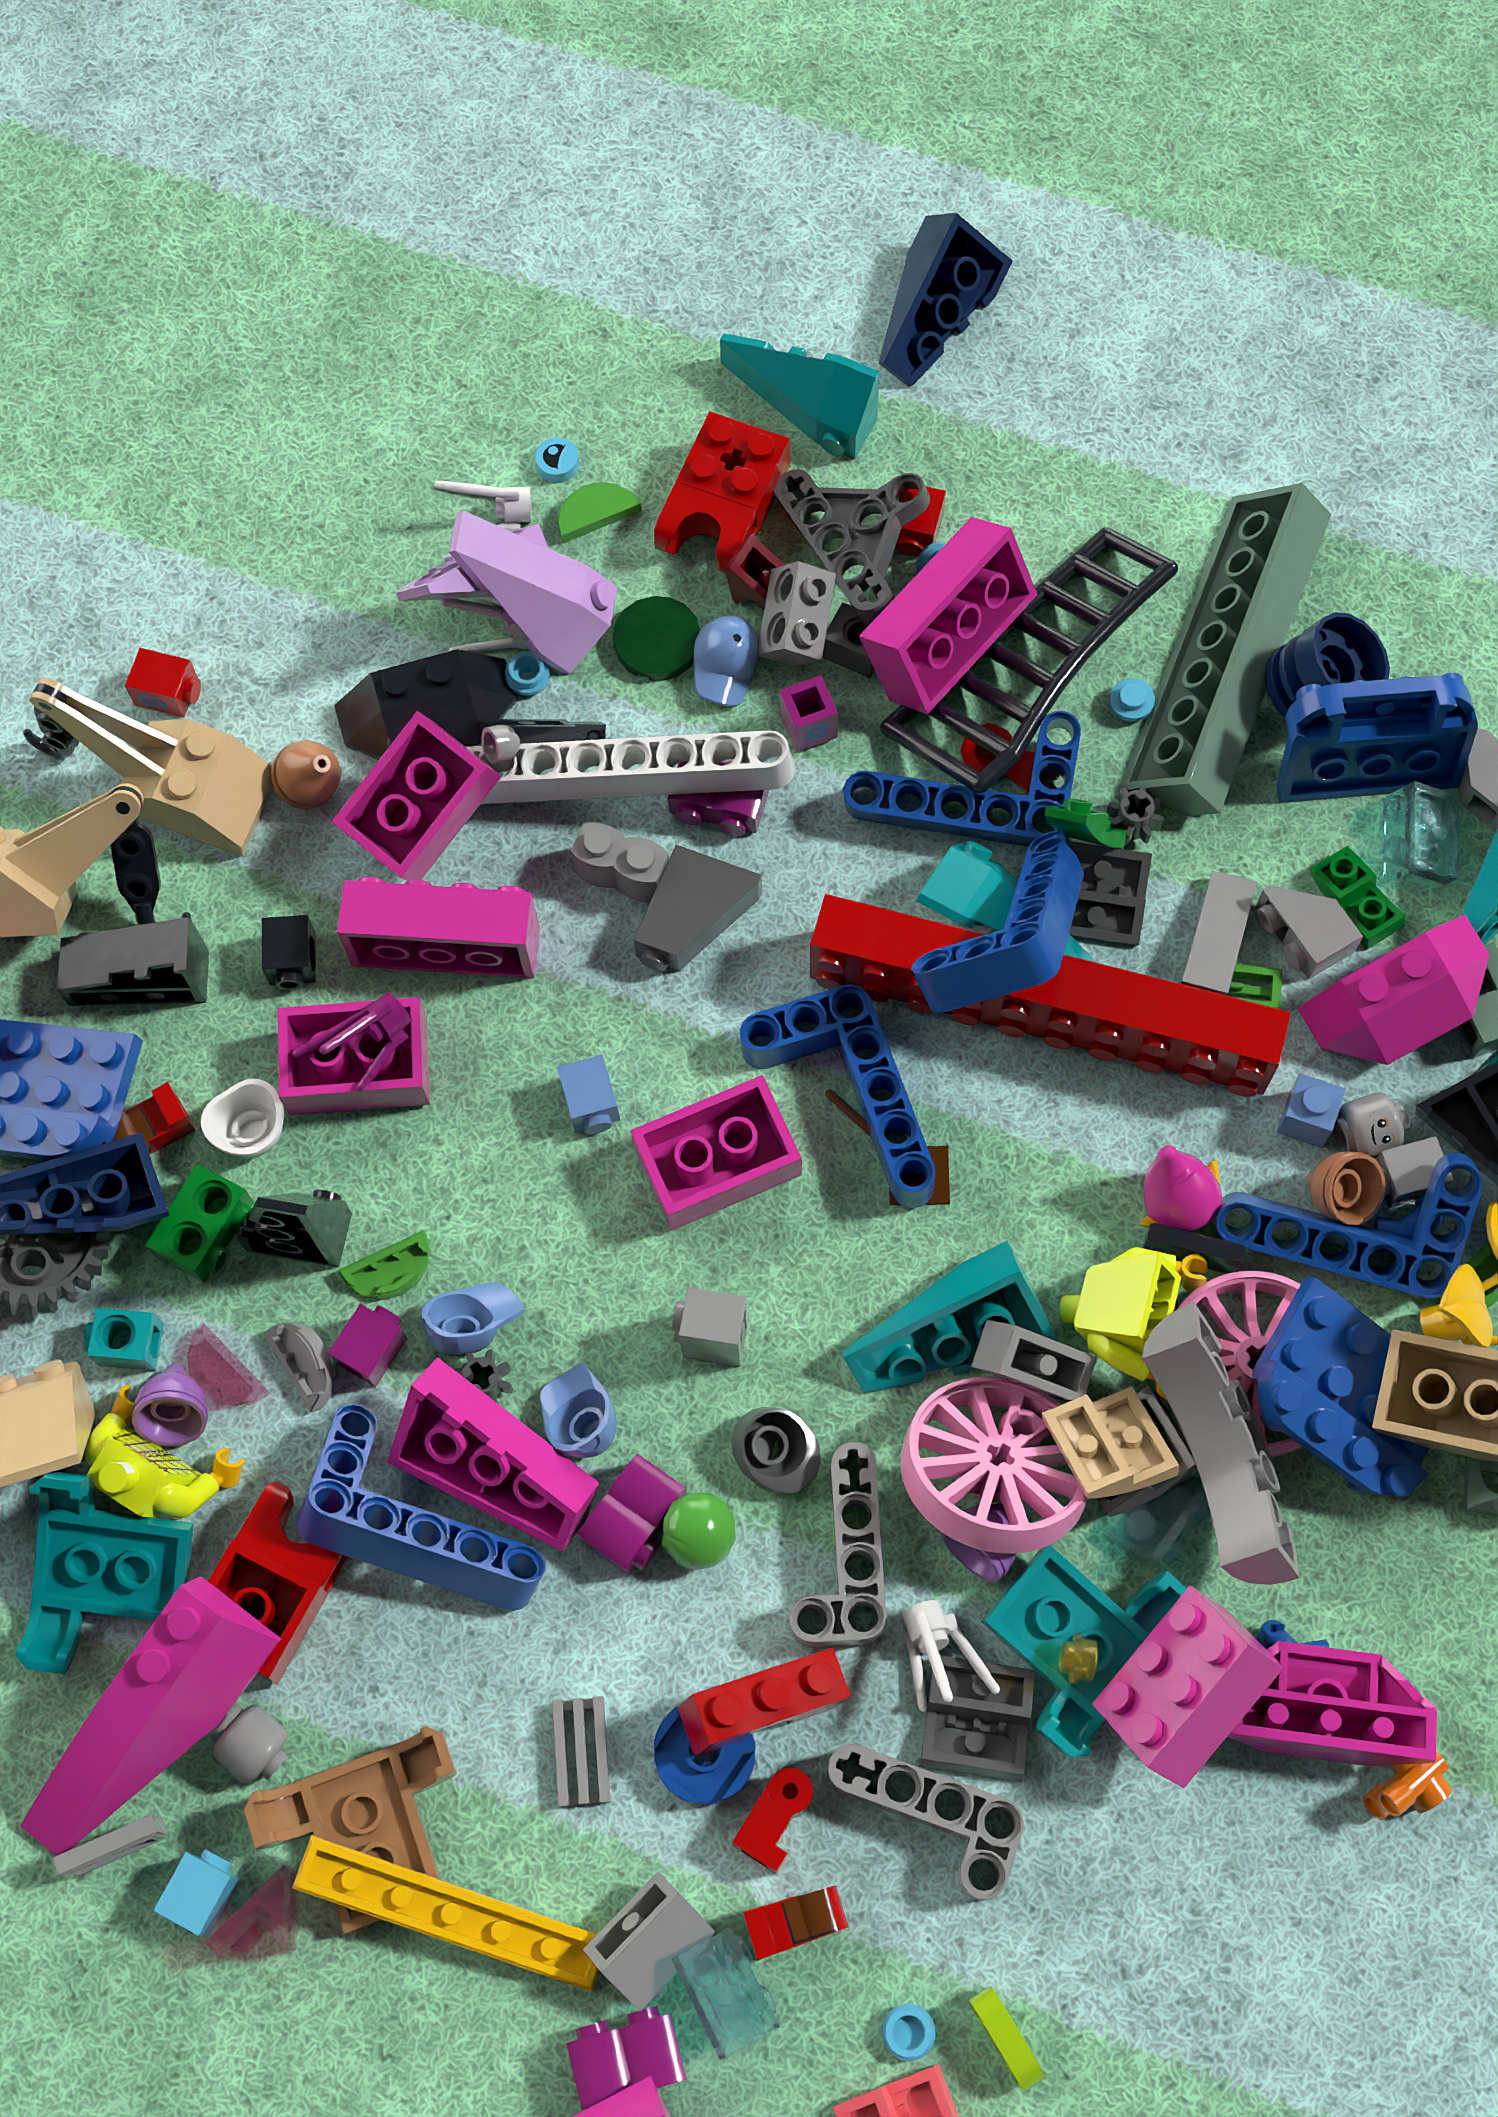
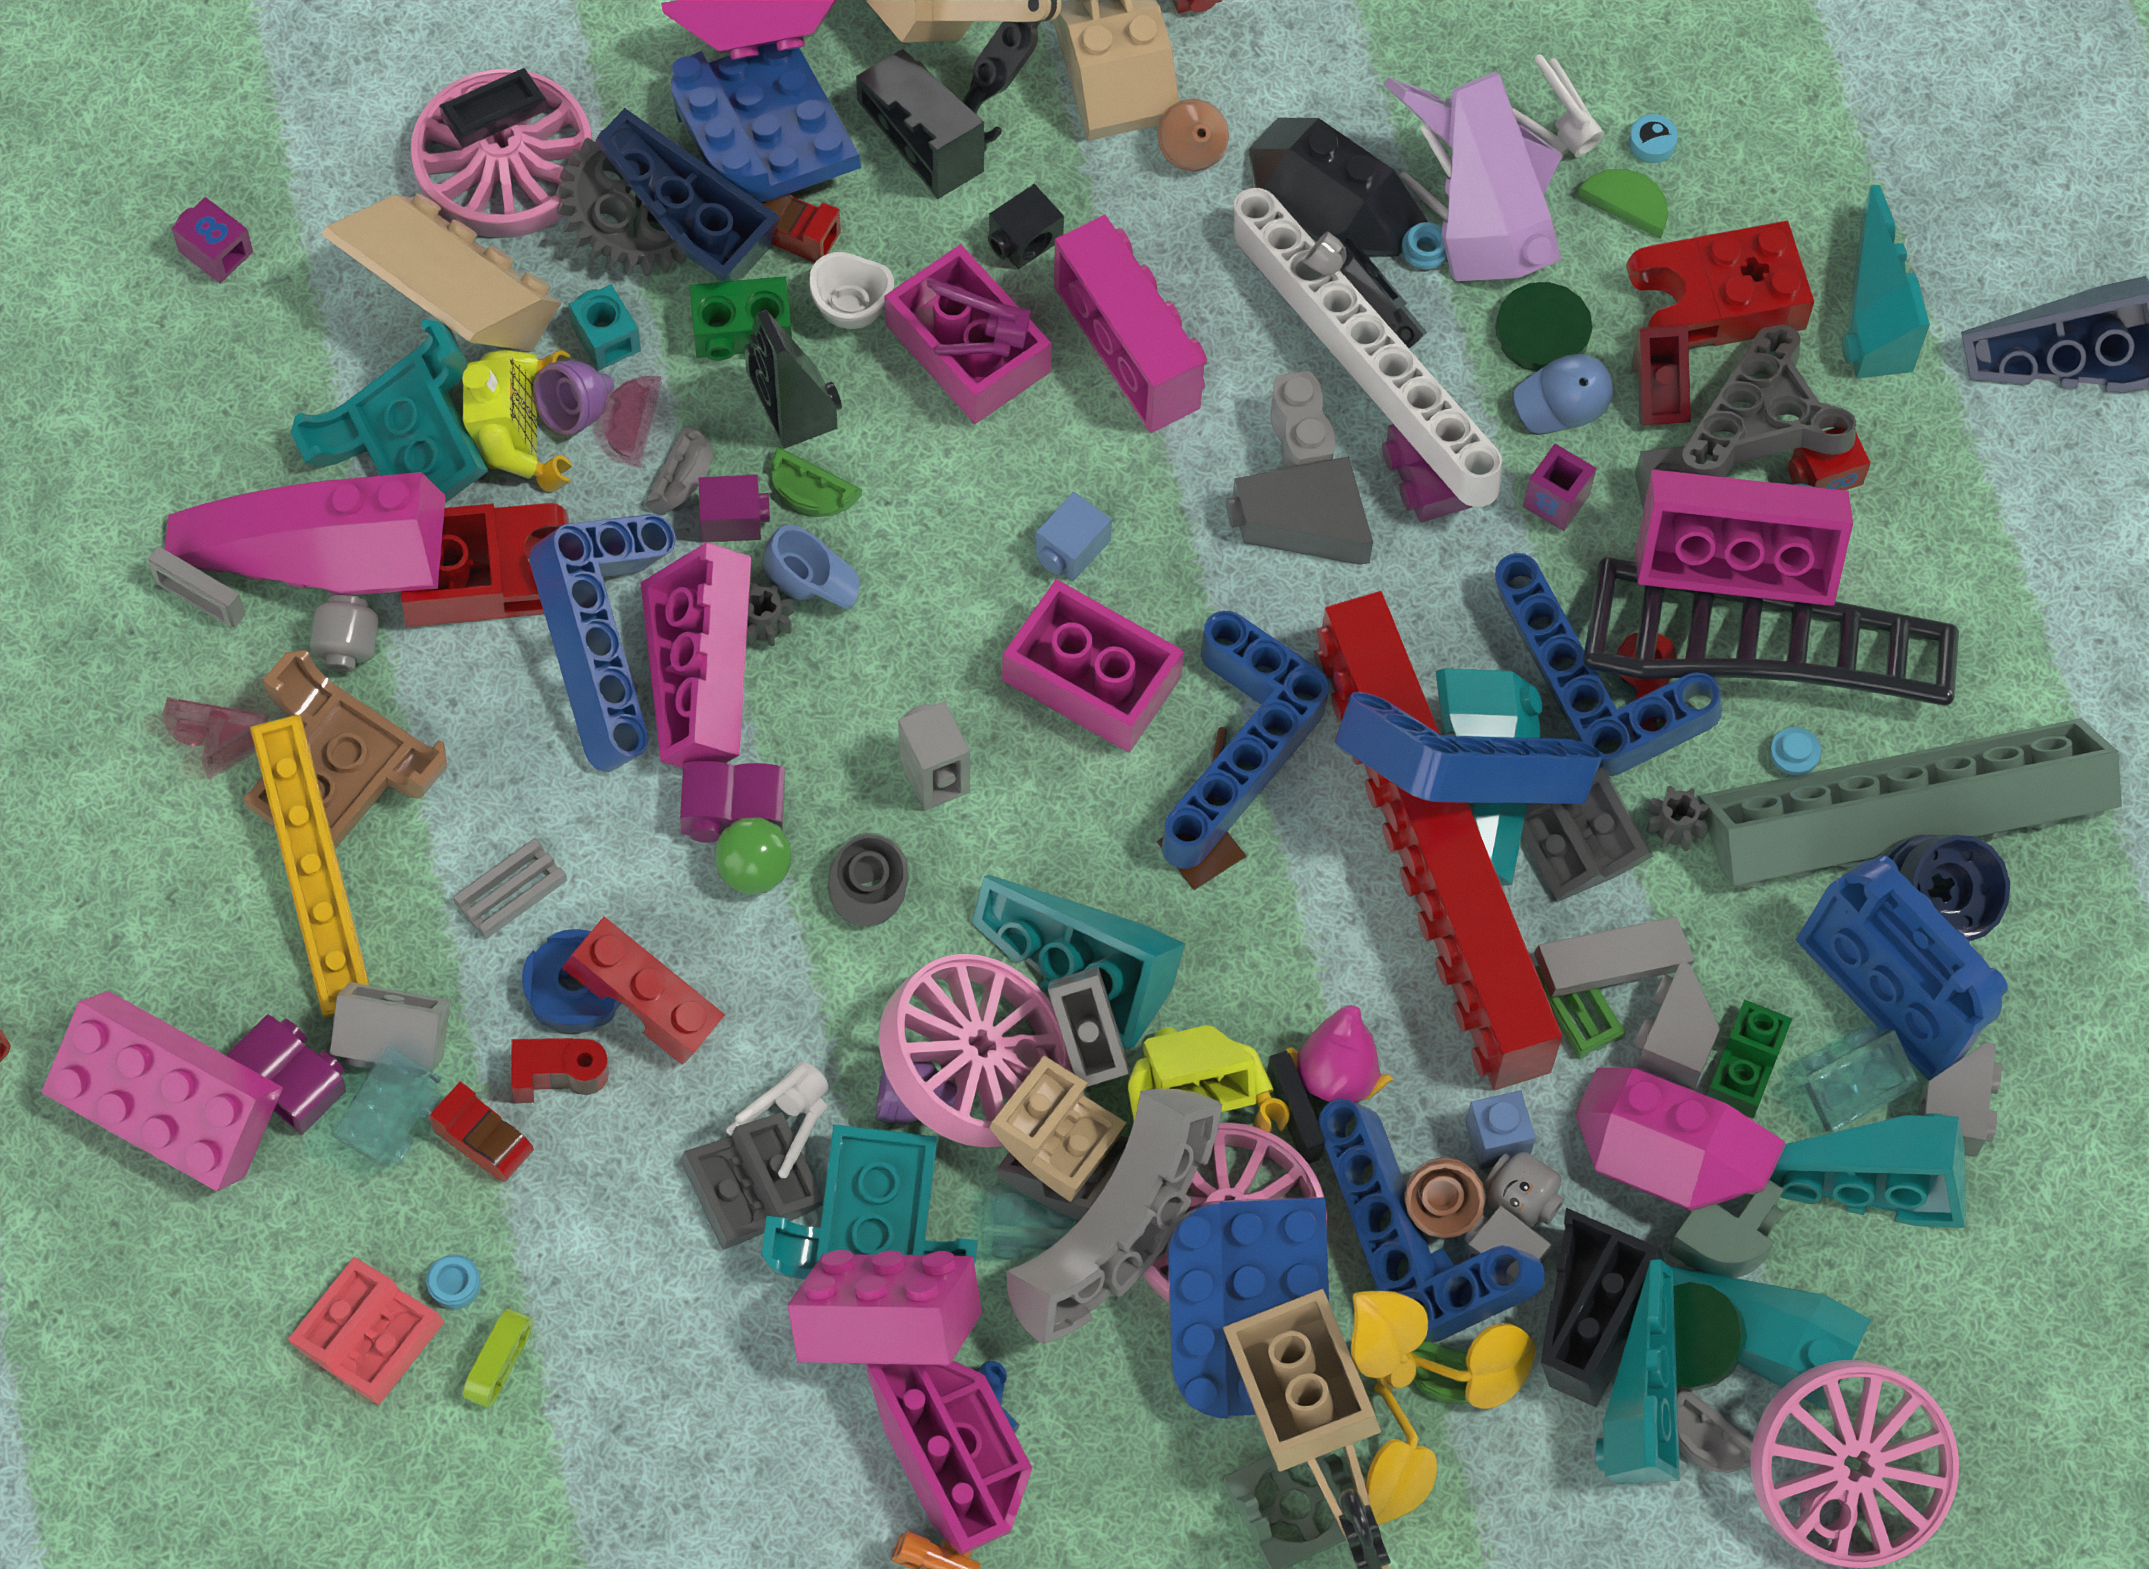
camera: 50 degrees right, 5 degrees down
(198, 1892) = (204, 671): medium azure brick -> none
(416, 798) = (1224, 222): dark pink brick -> none
(570, 1405) = (785, 705): medium blue cap -> none
(796, 614) = (1646, 415): light grey brick -> none
(849, 1544) = (820, 983): light grey beam -> none
(921, 1808) = (647, 1176): light grey beam -> none
(1078, 1659) = (852, 1218): clear yellow plate -> none
(1084, 824) = (1628, 784): green slope -> none

